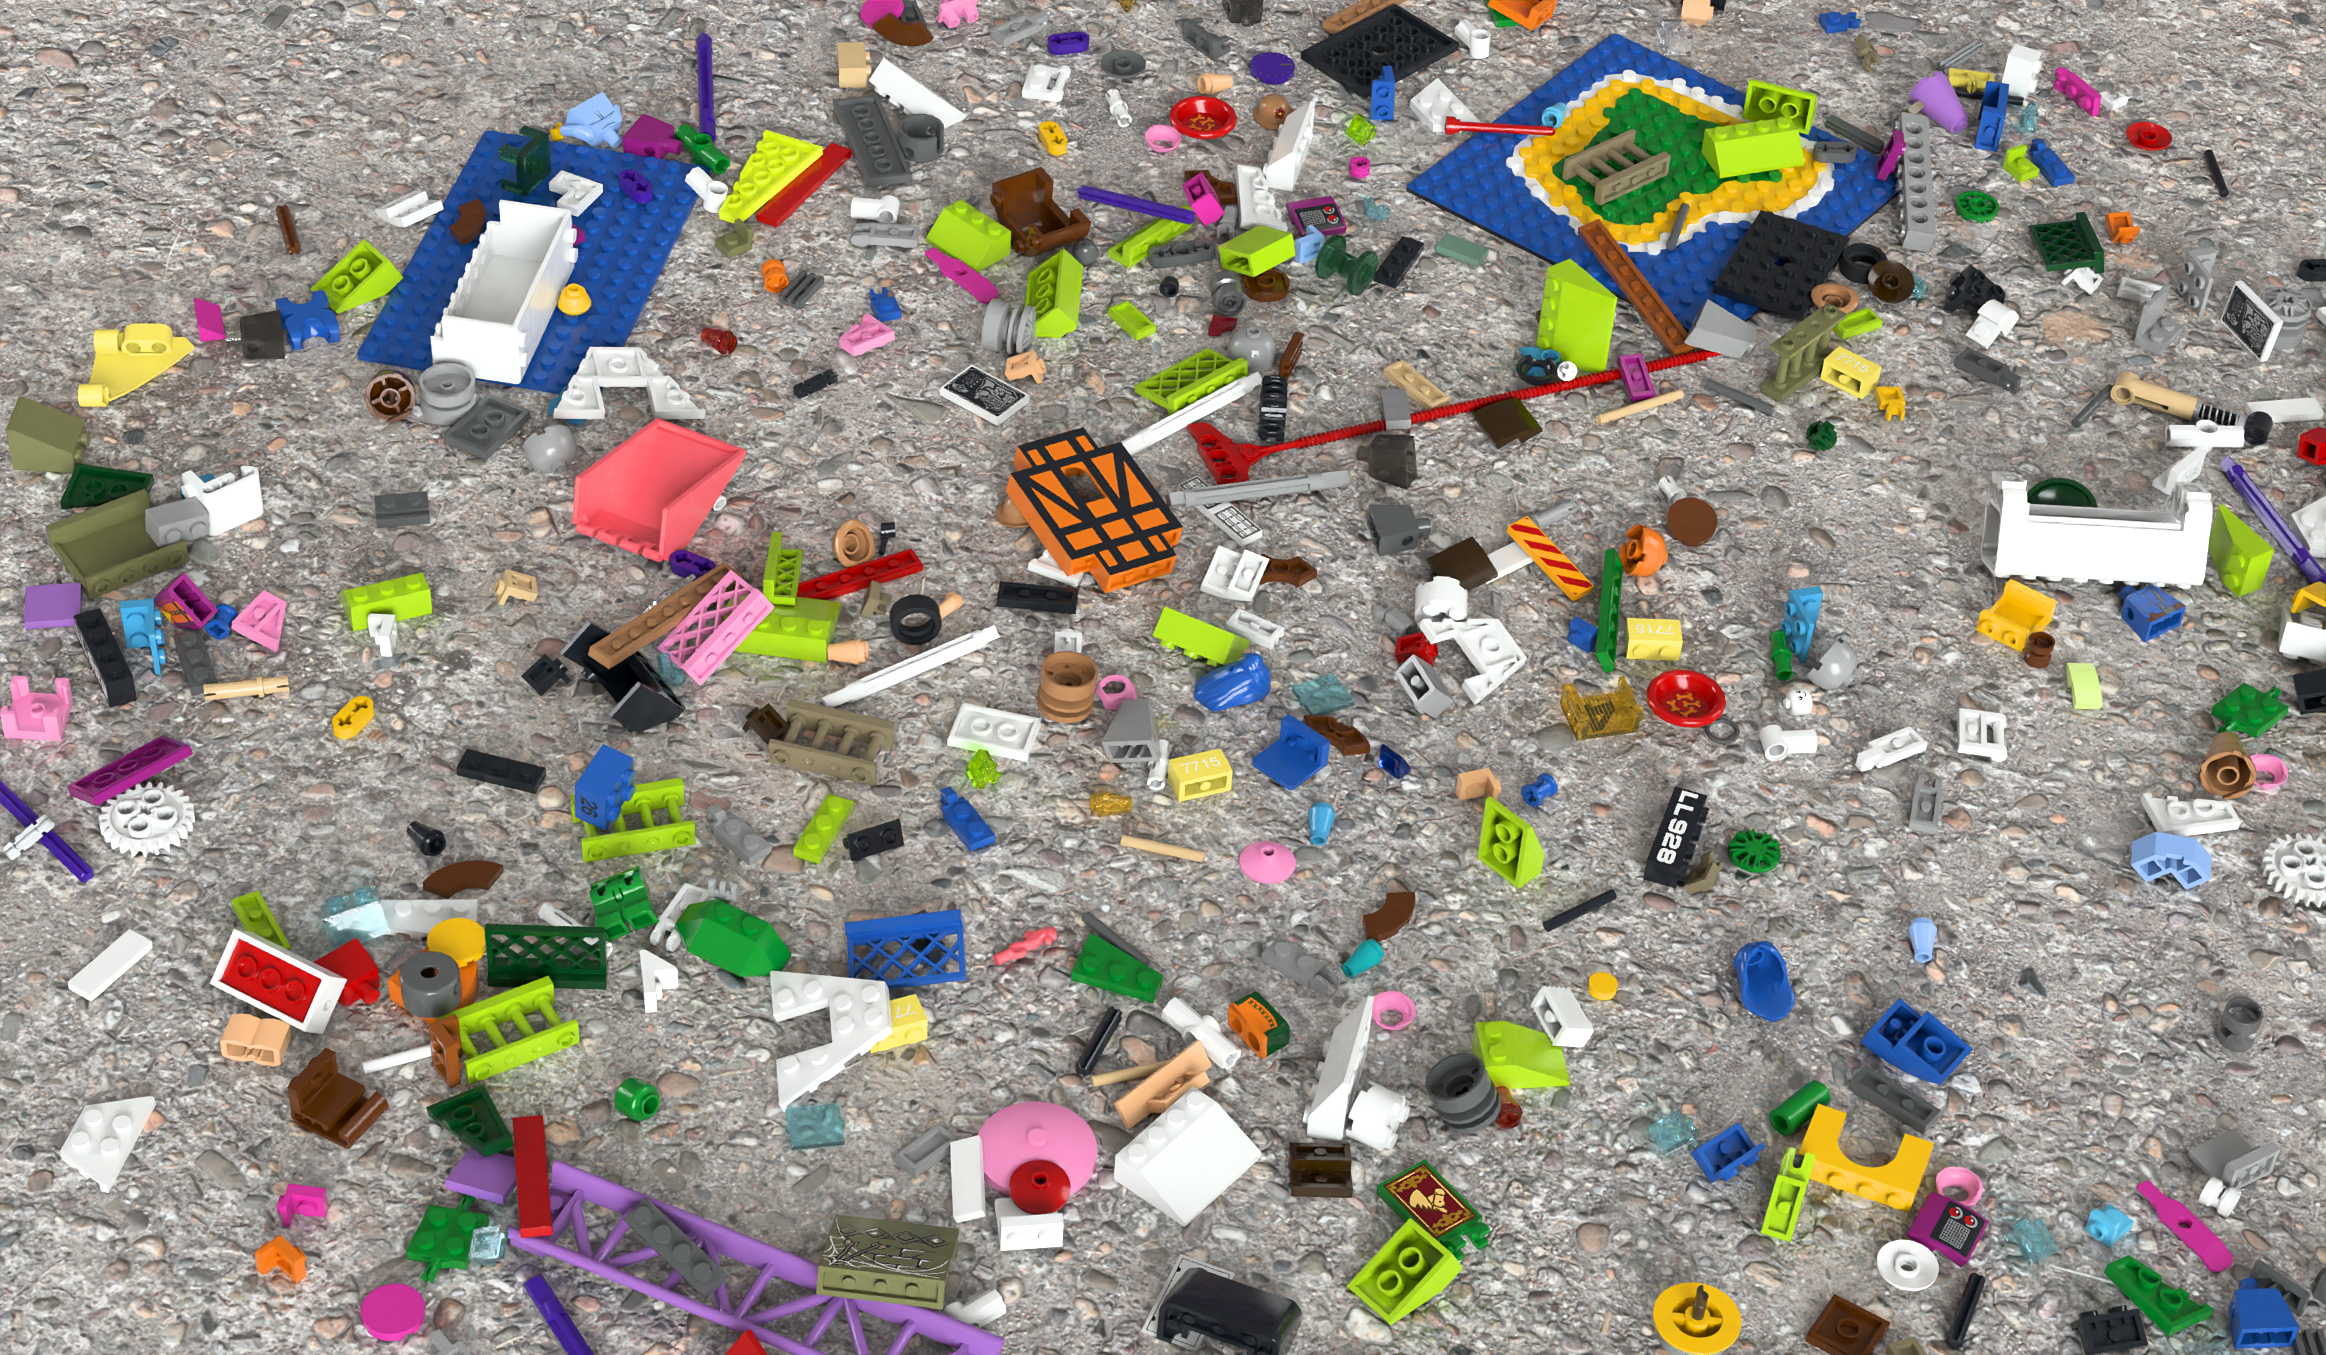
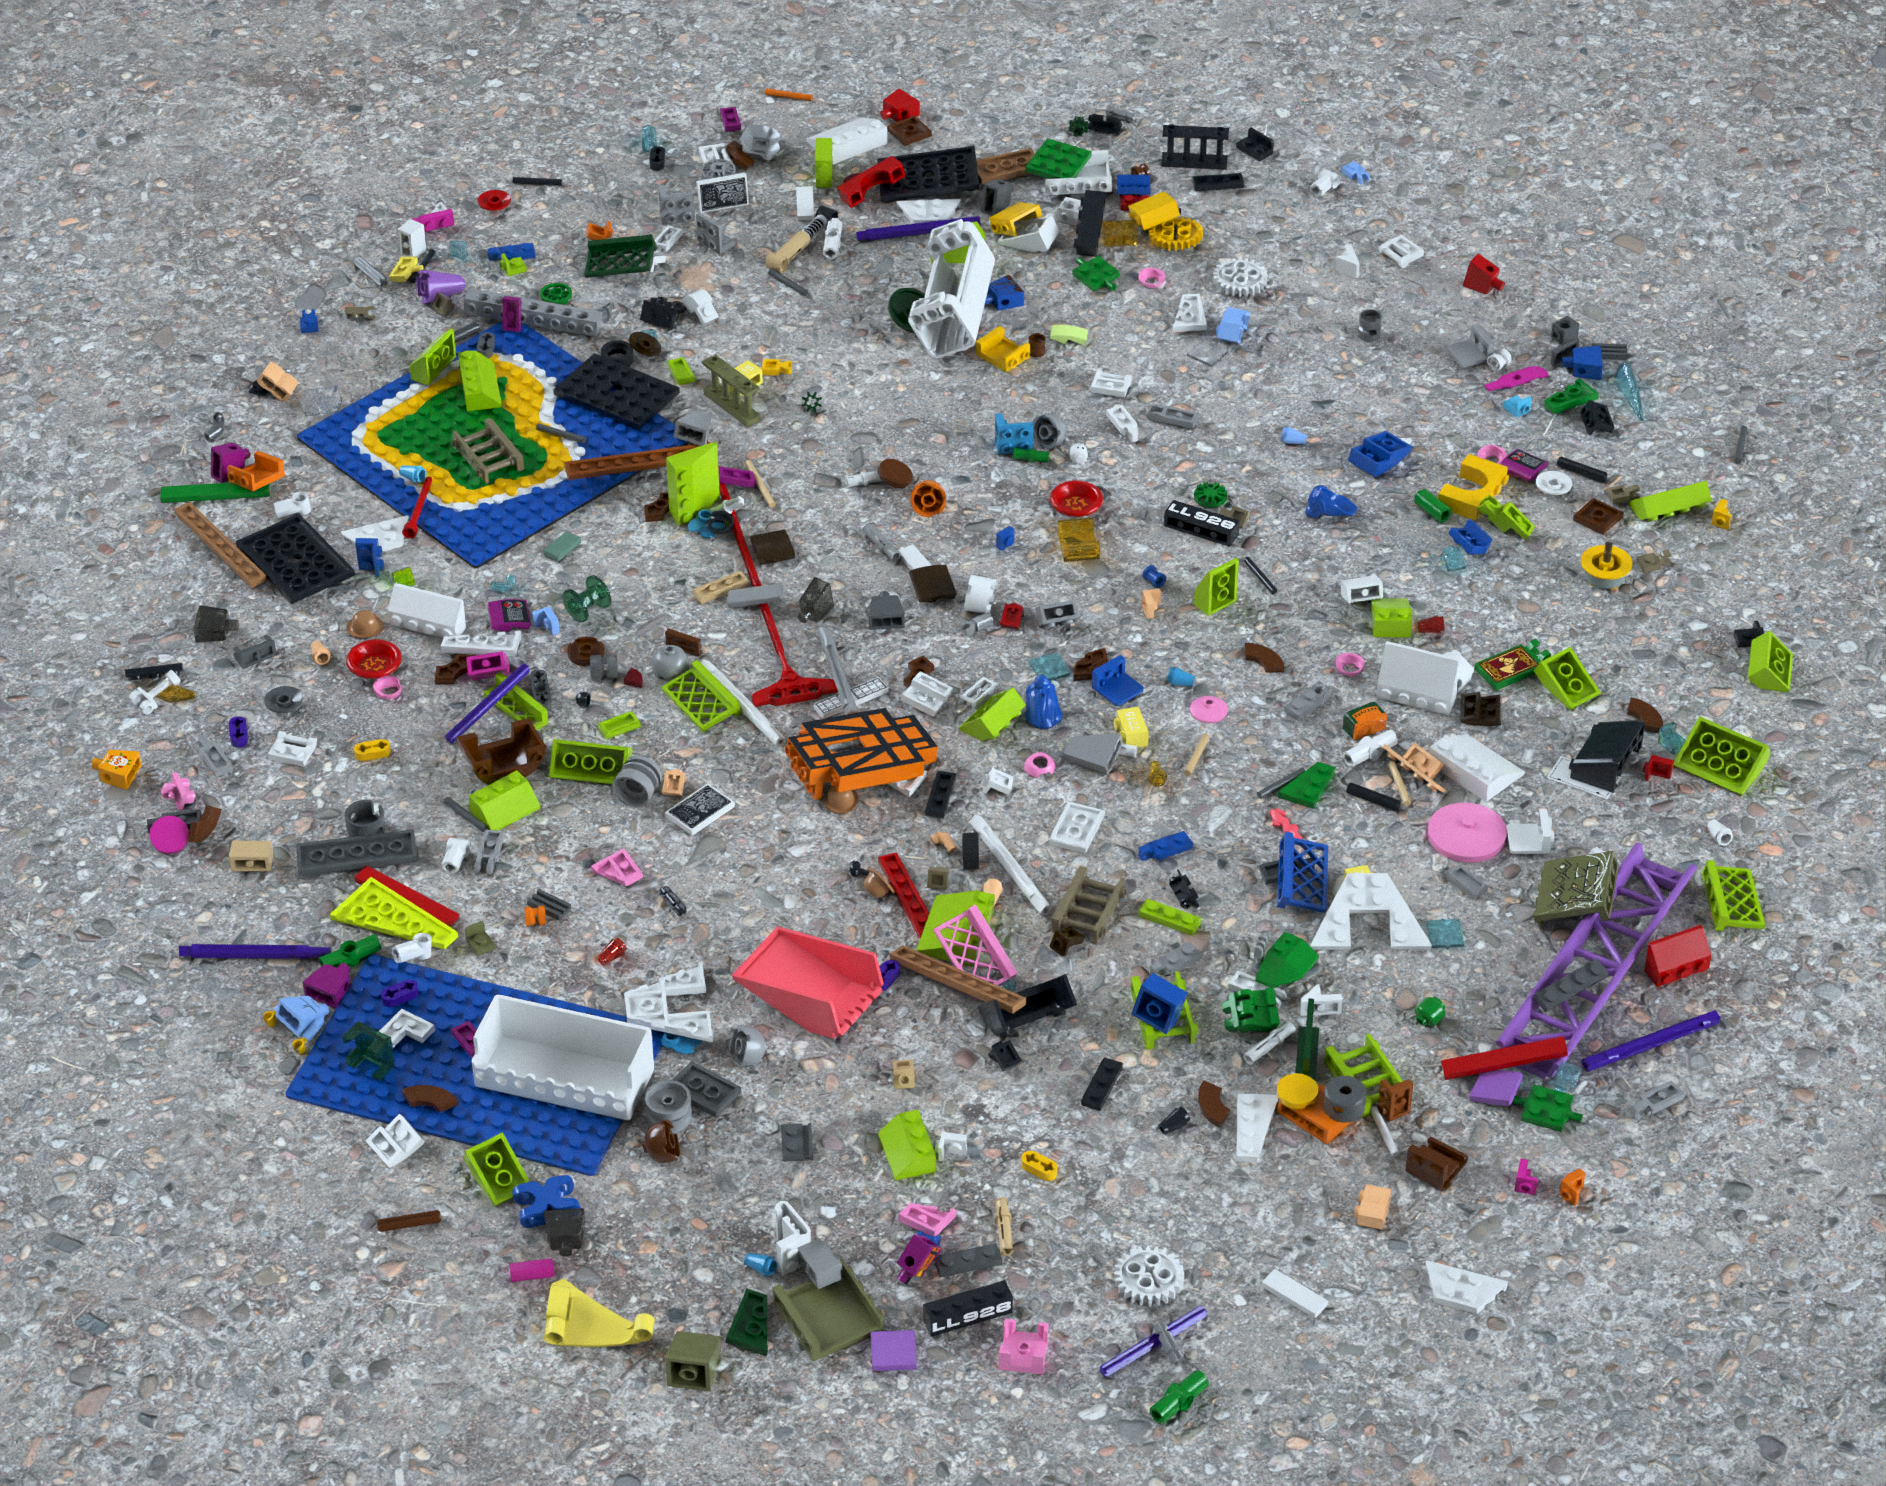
camera: 80 degrees left, 0 degrees up
(129, 770) = (1097, 1287): magenta tile -> none
(141, 628) = (954, 1273): dark azure bracket -> none
(257, 918) = (1262, 1208): lime plate -> none
(278, 981) = (1331, 1186): brick -> none
(354, 917) = (1253, 1154): clear light blue bracket -> none
(359, 969) = (1311, 1158): red torso -> none
(393, 1312) = (1610, 1135): dark pink tile -> none
(473, 1120) = (1450, 1091): dark green wing -> none
(674, 589) = (927, 982): clear piece -> none
(775, 573) = (906, 921): lime fence -> none
(884, 307) = (579, 858): blue plate -> none
(912, 94) = (304, 821): white slope -> none
(965, 276) = (552, 809): dark pink piece -> none
(967, 1179) = (1495, 861): white tile -> none
(982, 769) = (1121, 832): clear neon green tile -> none
(1035, 1197) = (1504, 827): red dish -> none
(1067, 687) = (1049, 779): medium nougat wheel -> none
(1118, 108) = (339, 709): white pin -> none
(1257, 250) = (557, 645): lime brick -> none
(1272, 68) = (301, 620): dark purple tile -> none
(1273, 408) = (756, 648): black gear -> none
(1359, 167) = (446, 586): dark pink bush -> none
(1363, 958) = (1304, 670): teal cone -> none
(1393, 762) = (1122, 639): clear blue slope -> none
(1398, 262) = (565, 578): black plate -> none
(1463, 1093) = (1434, 622): dark grey wheel -> none
(1486, 646) = (1023, 579): white wing -> none
(1550, 558) = (927, 542): light orange tile -> none
(1602, 986) = (1327, 574): yellow tile -> none
(1609, 610) = (980, 522): green tile -> none
(1653, 639) = (1013, 507): light yellow brick -> none
(1739, 396) = (755, 436): dark grey bar -> none
(1780, 743) = (1115, 463): white piece -> none
(1836, 295) = (665, 370): medium nougat hat -> none
(1894, 1099) = (1424, 469): dark grey plate -> none
(1988, 369) = (745, 319): dark grey hinge -> none
(1992, 116) = (464, 260): blue panel -> none
(2033, 1240) = (1531, 433): clear light blue bracket -> none
(2181, 471) = (871, 254): white bracket -> none
(2227, 767) = (1150, 287): medium nougat cone -> none

